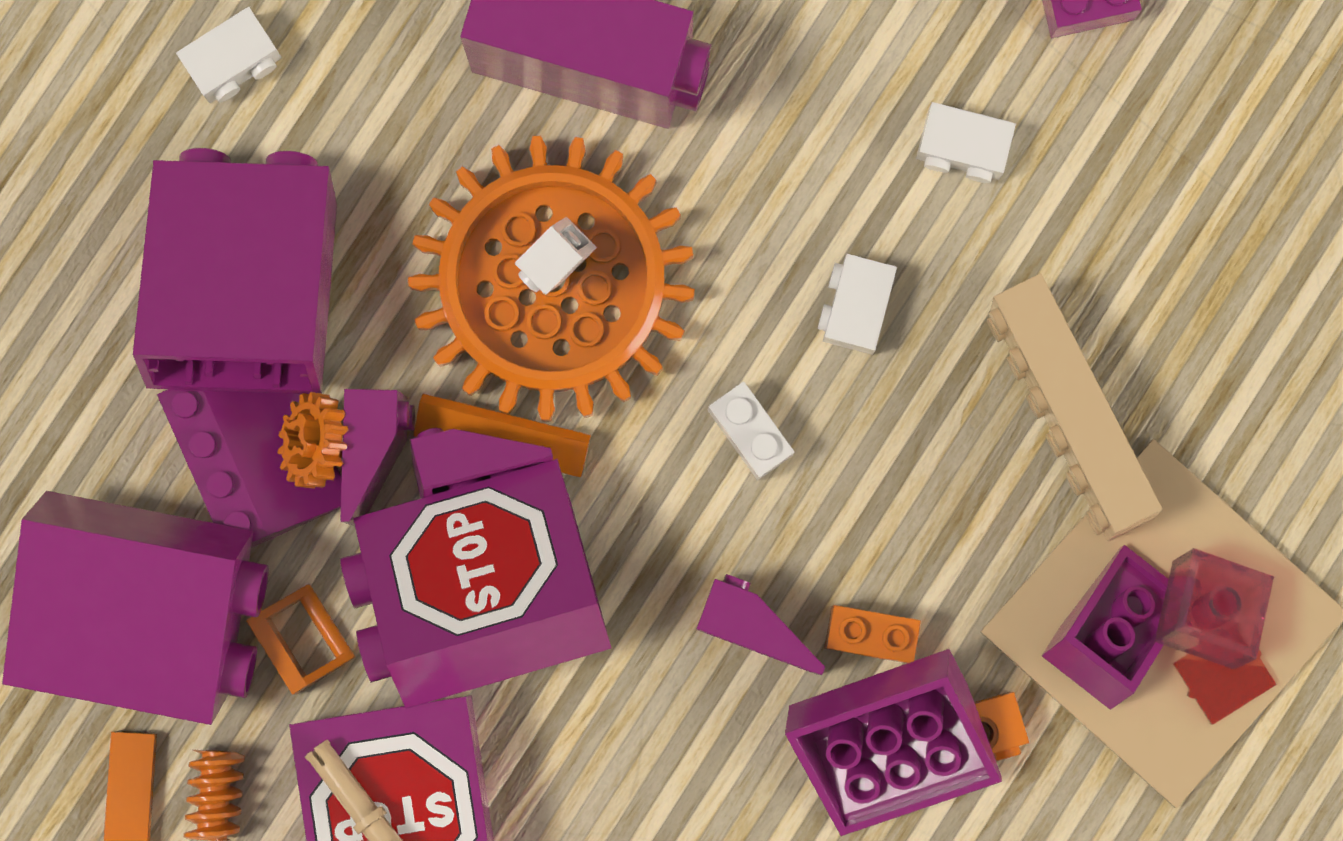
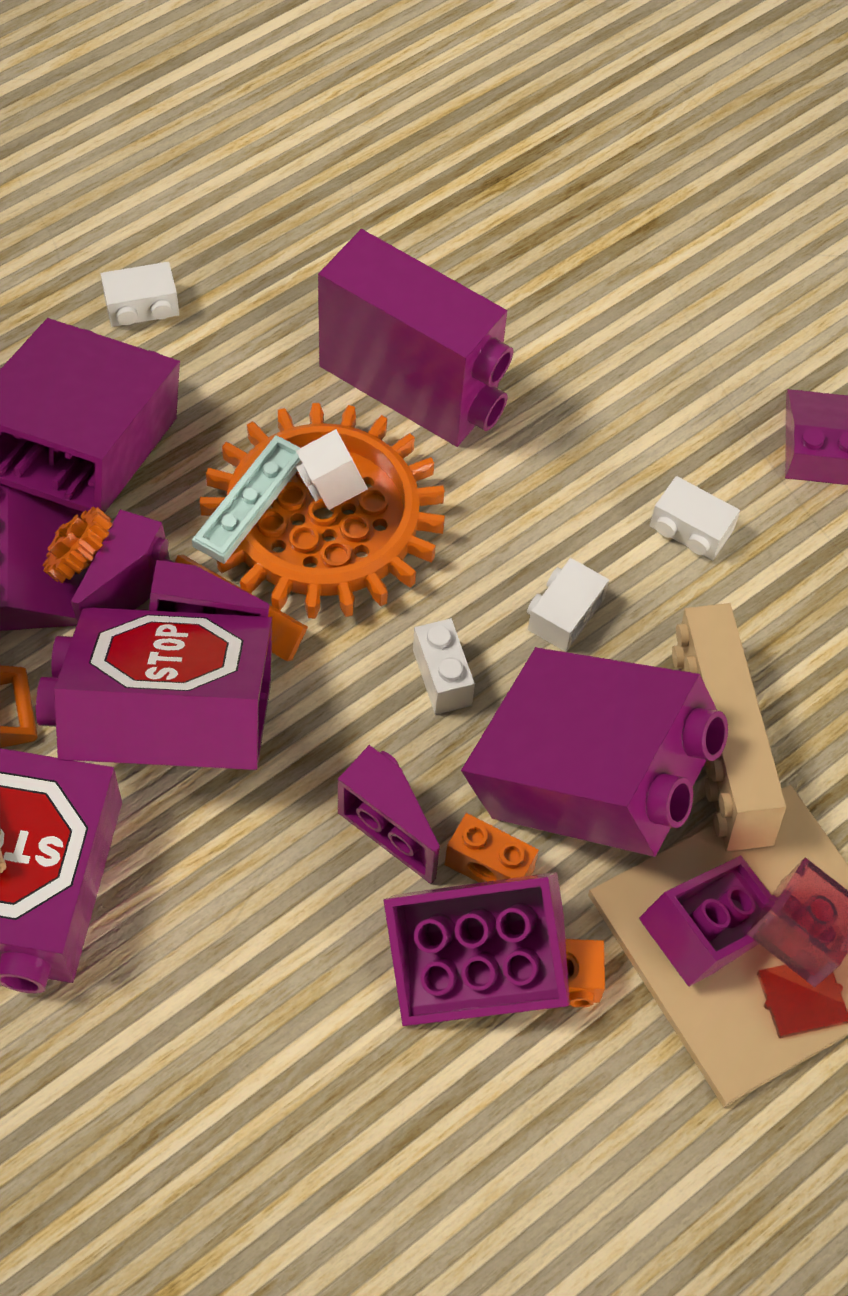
camera: 15 degrees right, 25 degrees down
(473, 308) = (248, 500): none -> light aqua tile
(951, 502) = (597, 749): none -> magenta brick

